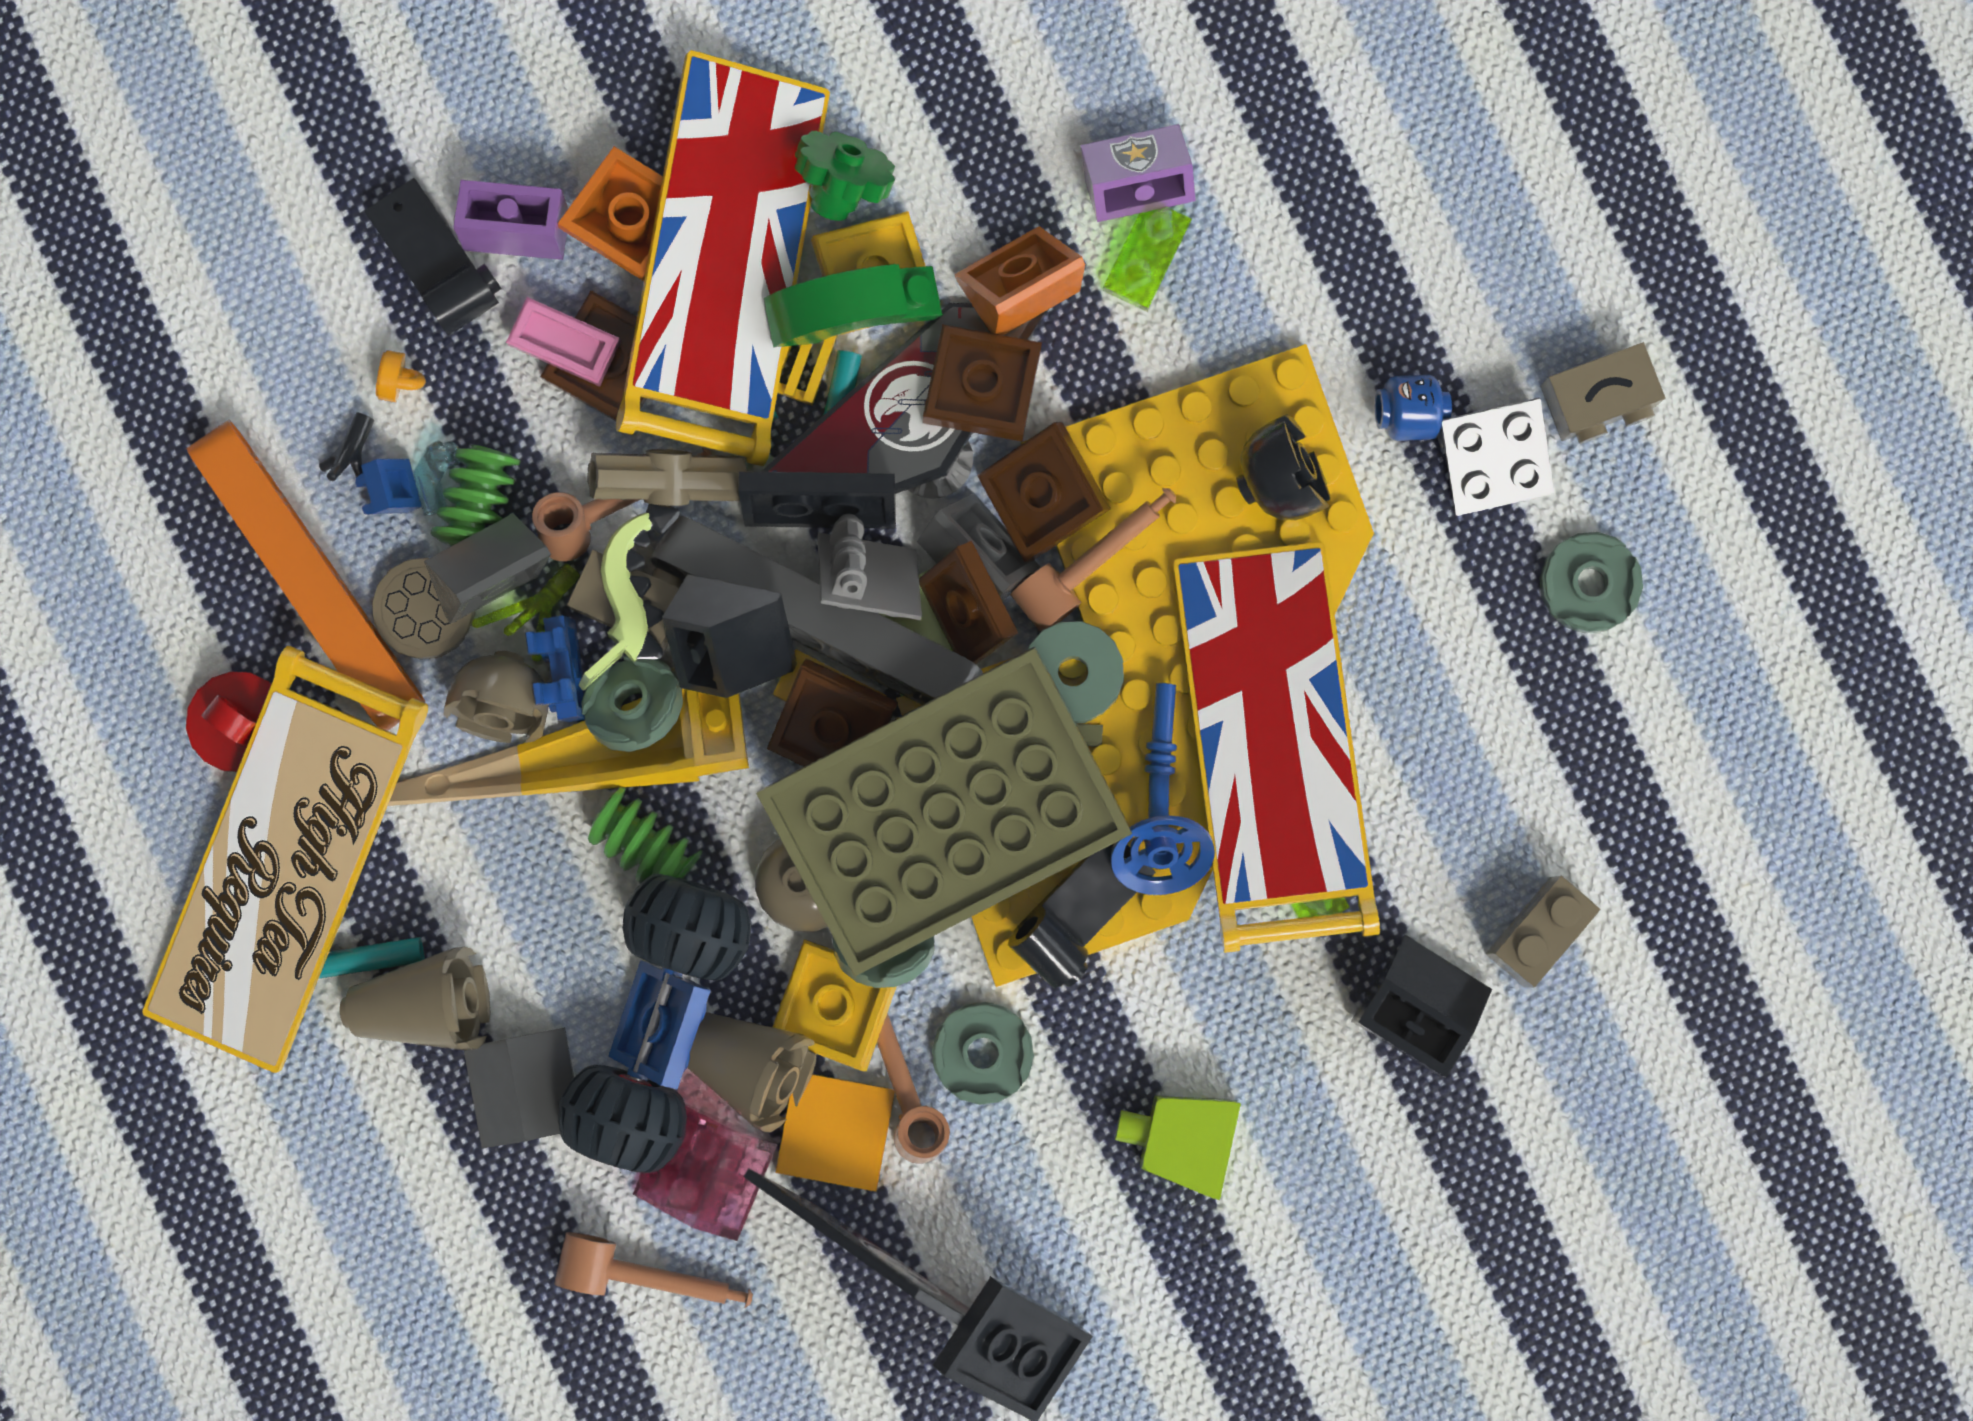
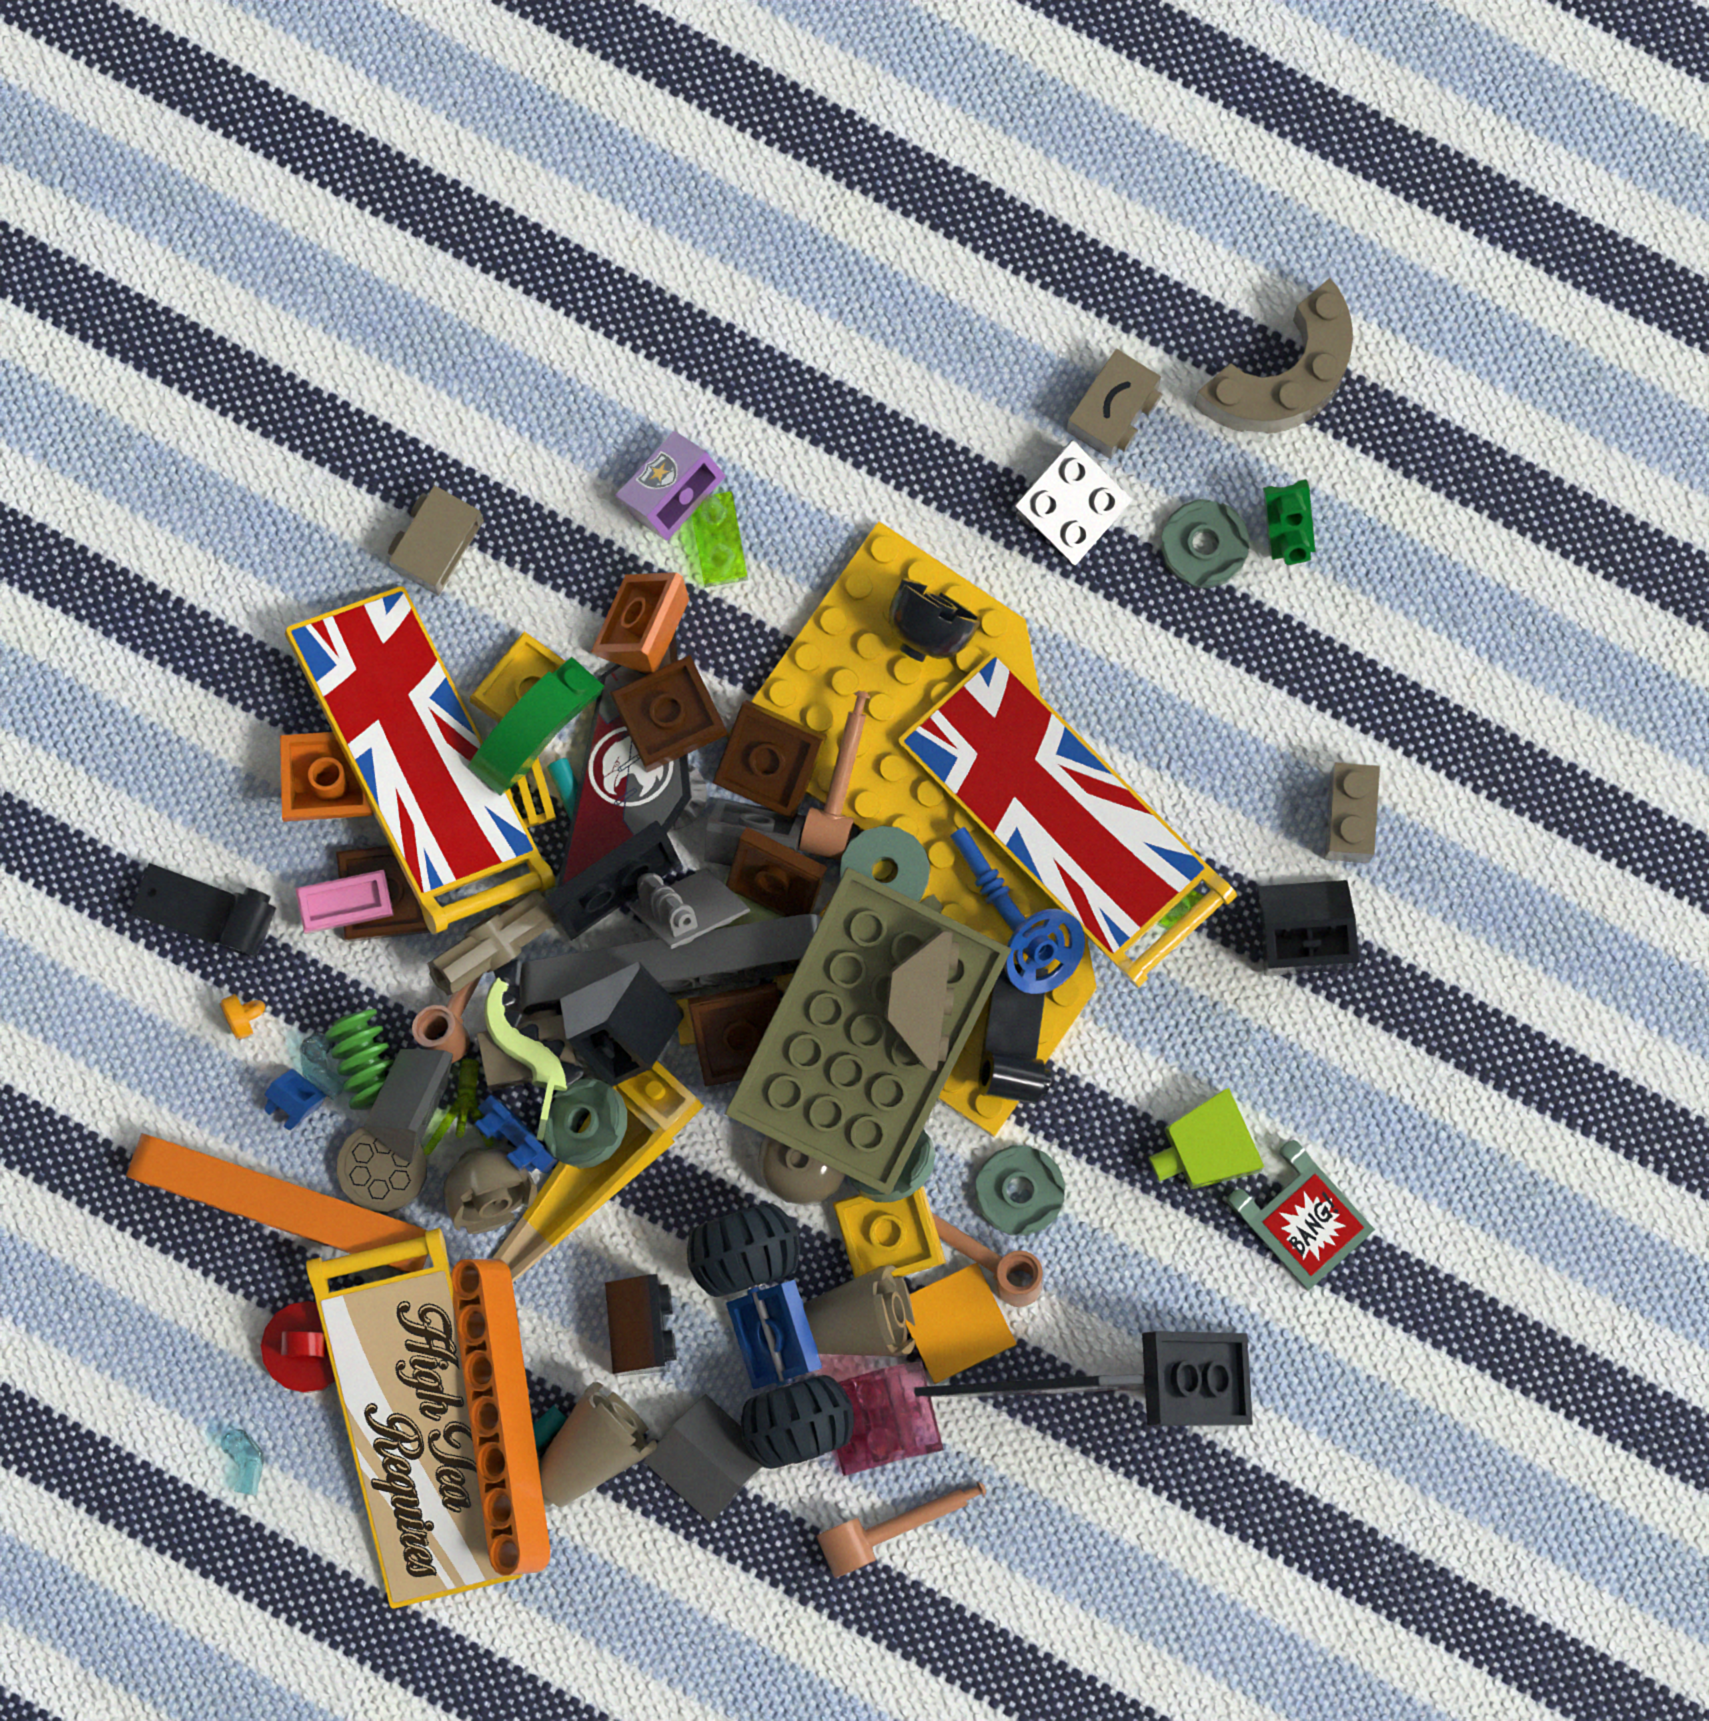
camera: 30 degrees left, 5 degrees down
(113, 783) = (248, 1458): none -> clear light blue arm
(350, 449) = (244, 1091): black bar -> none
(357, 916) = (500, 1417): none -> orange beam
(510, 219) = (244, 841): medium lavender brick -> none
(544, 926) = (638, 1325): none -> black slope
(638, 840) = (662, 1217): bright green piece -> none
(842, 173) = (458, 637): green plant -> none
(888, 67) = (435, 539): none -> dark tan brick
(1013, 819) = (920, 997): none -> dark tan slope
(1222, 1275) = (1308, 1222): none -> flag
(1412, 407) = (987, 511): blue head -> none
(1684, 621) = (1289, 522): none -> green hips
(1781, 507) = (1299, 393): none -> dark tan brick

